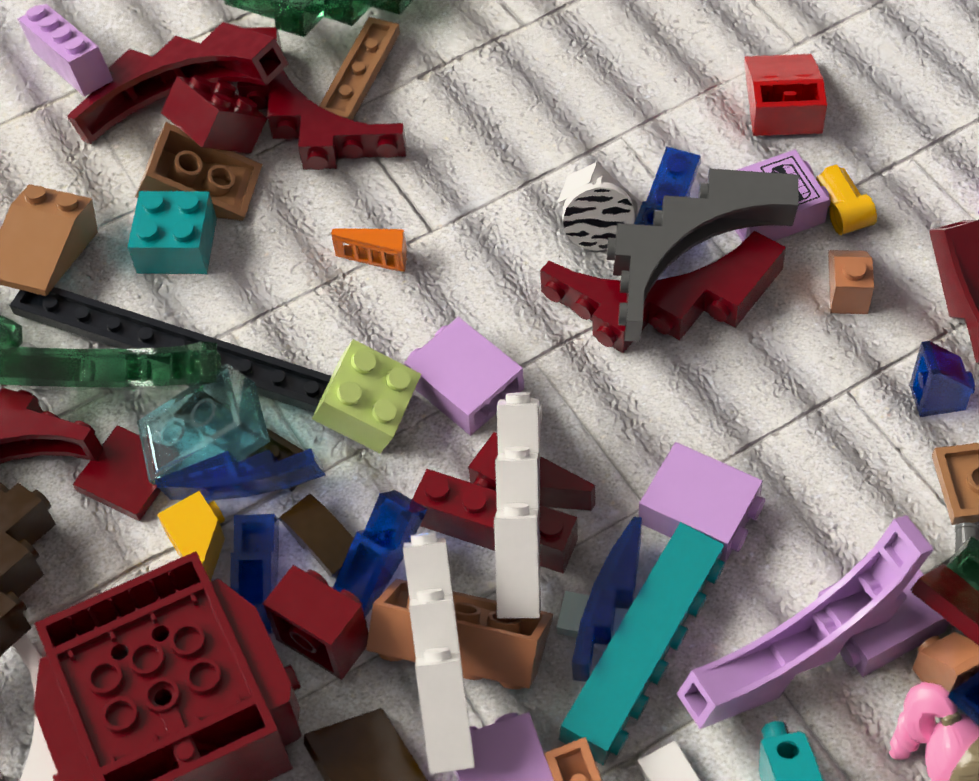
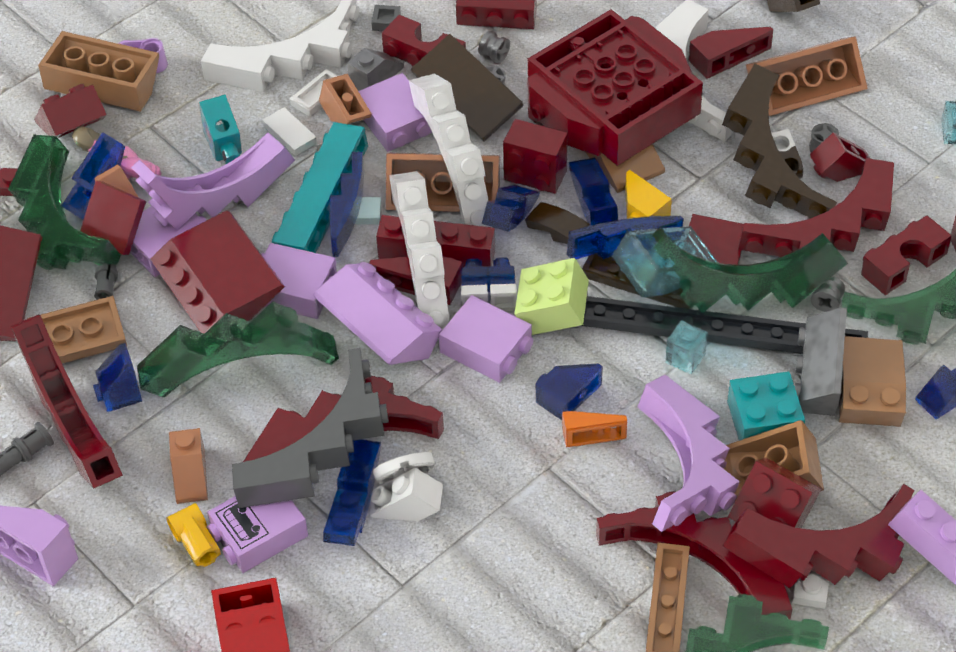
camera: 165 degrees right, 5 degrees down
(82, 250) = (821, 362): none -> flat silver slope
(227, 317) = (686, 347): none -> clear light blue brick
(268, 174) = (702, 456): none -> lavender arch
(383, 297) = (567, 387): none -> clear blue slope
(440, 445) = (495, 279): none -> hips
(597, 411) = (379, 314): none -> lavender slope
(737, 372) = (231, 339): none -> clear green arch
(805, 495) = (217, 272): none -> dark red slope

